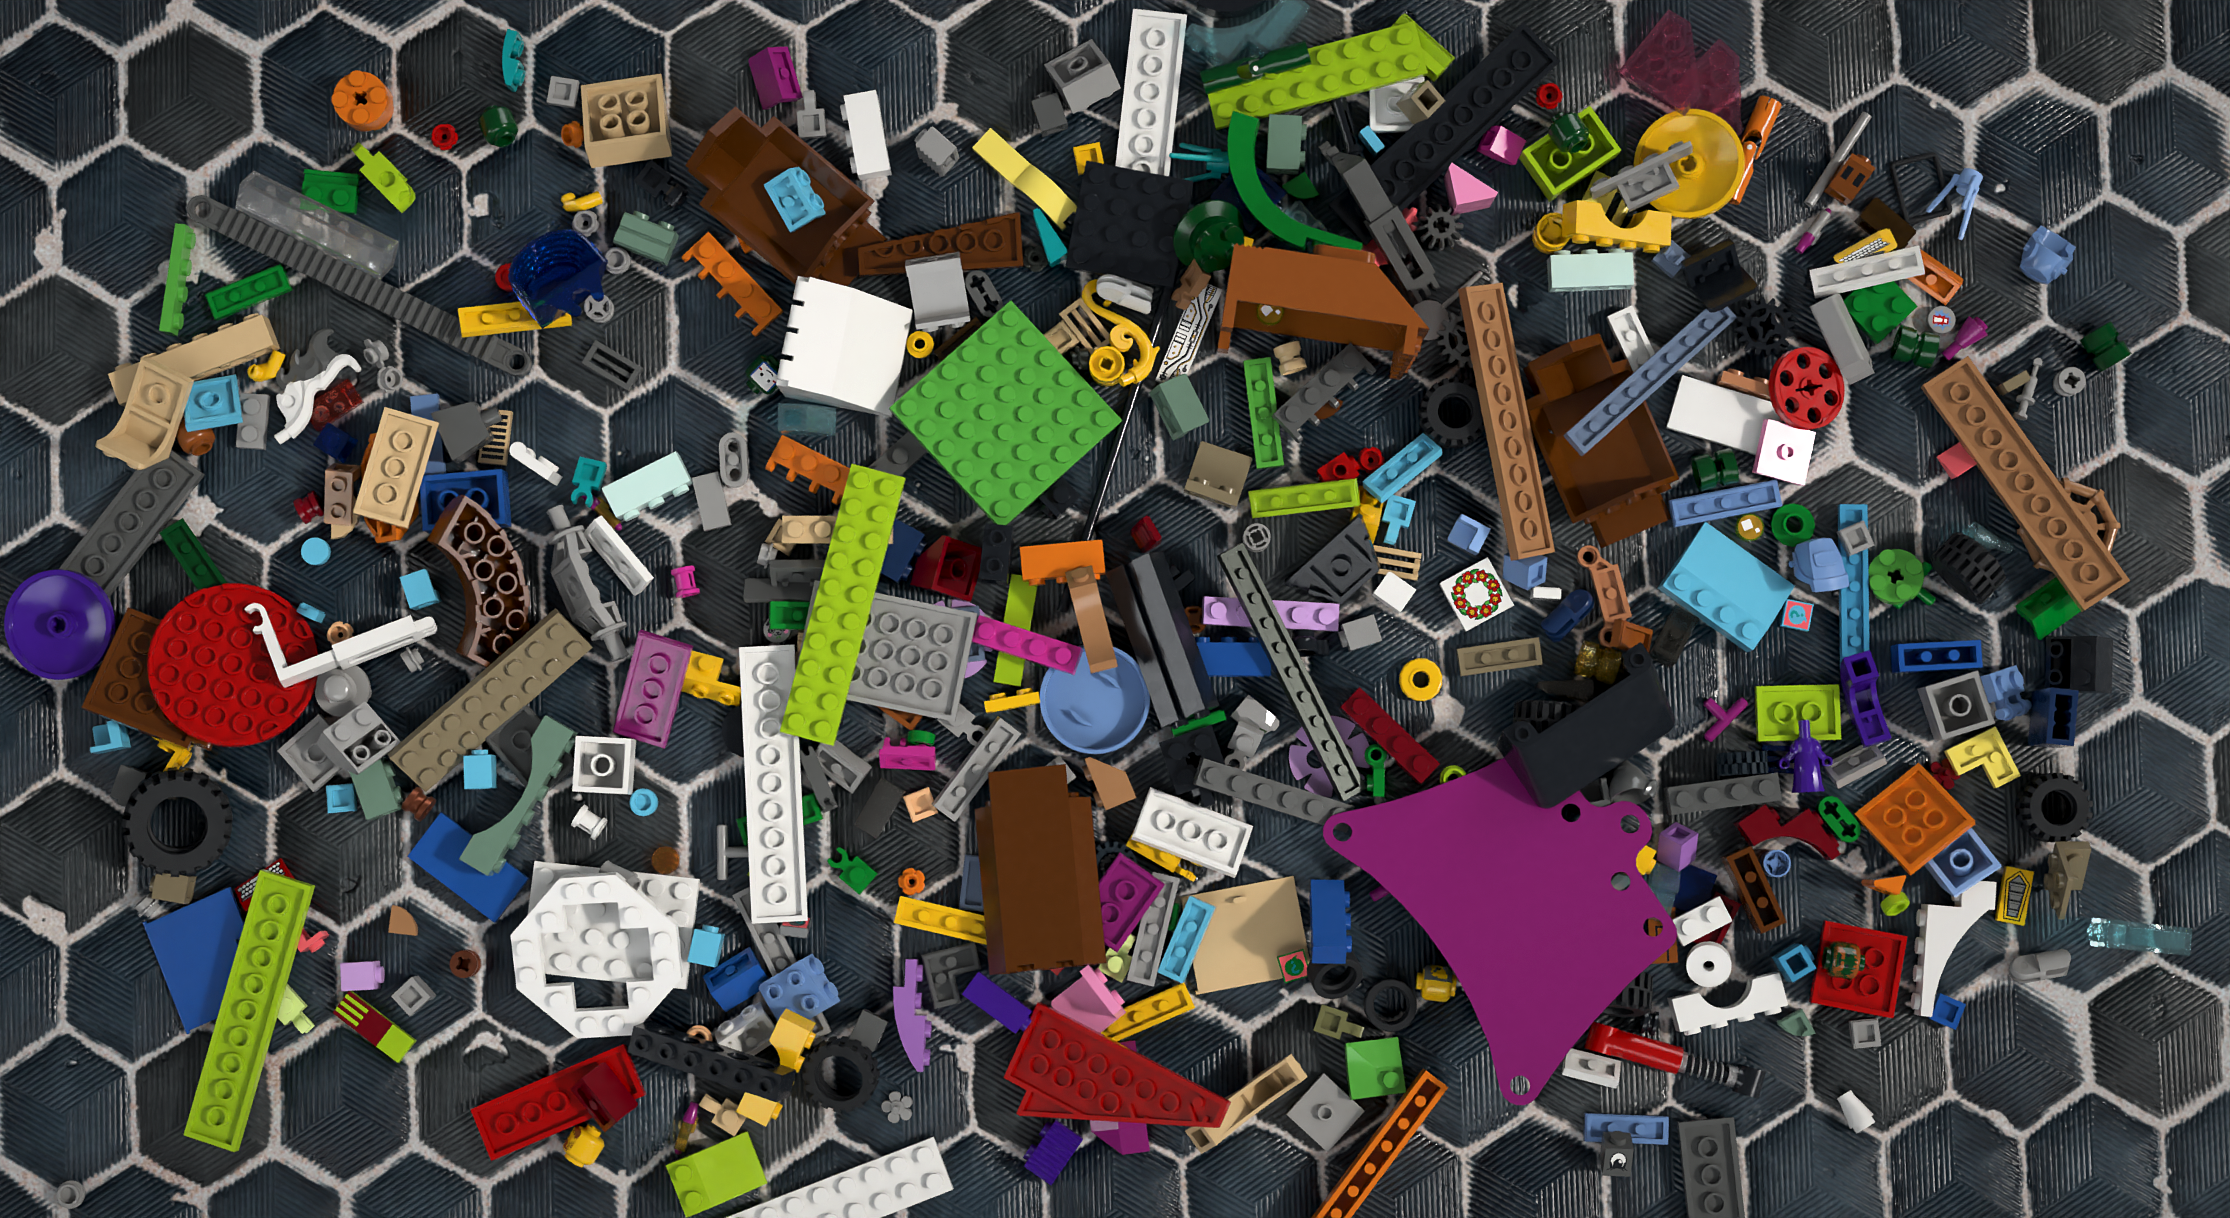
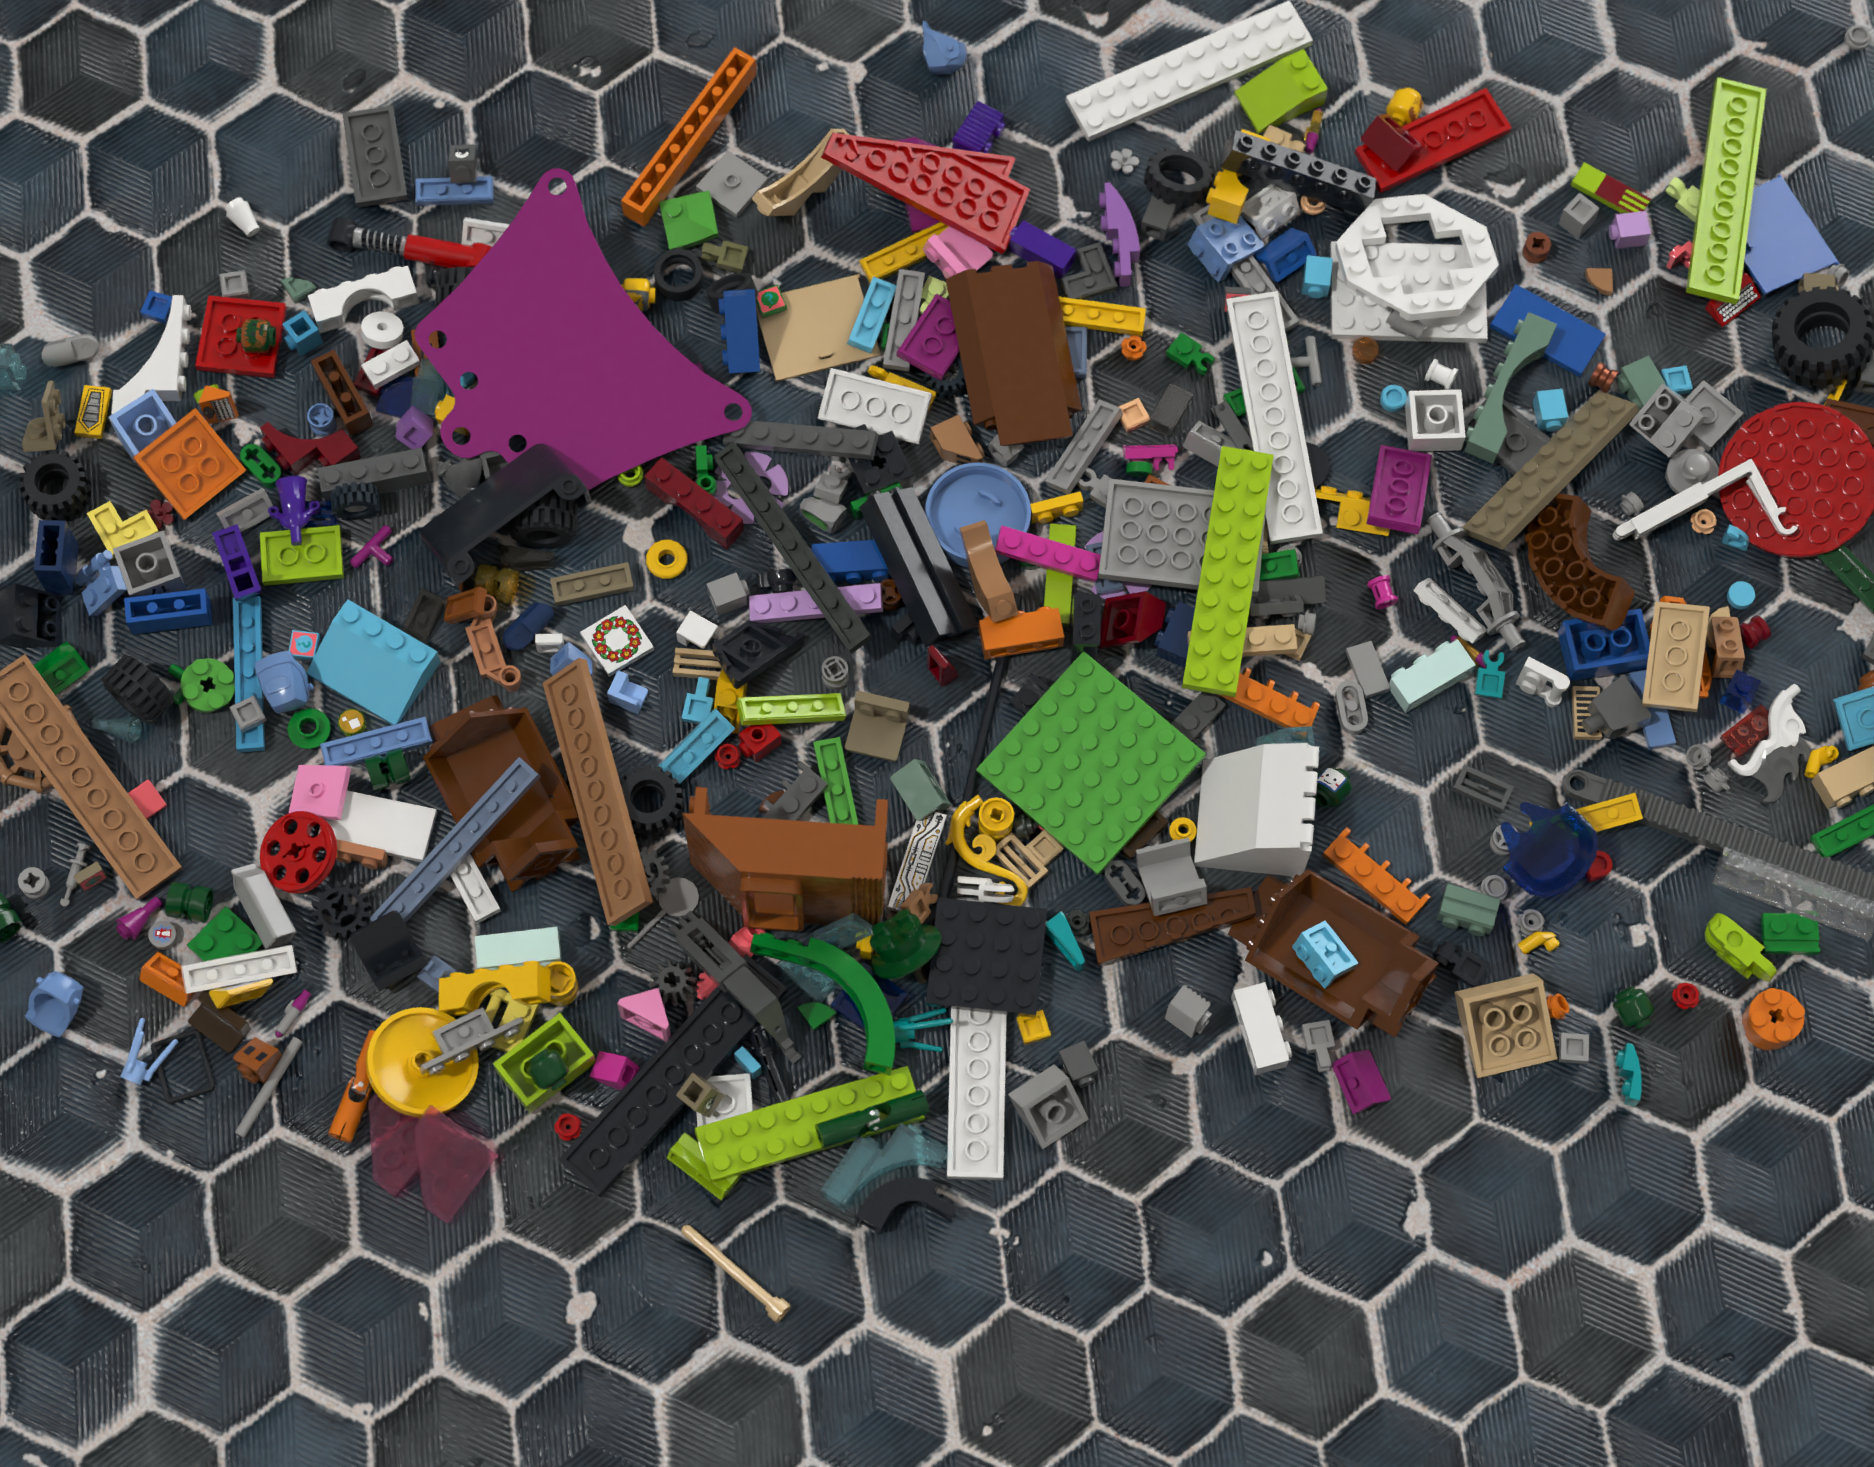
camera: 170 degrees right, 15 degrees down
(255, 415) = (1822, 710): light grey plate -> none
(419, 590) = (1636, 562): medium azure panel -> none
(1025, 177) = (1097, 1001): light yellow piece -> none
(1284, 144) = (836, 1053): sand green brick -> none

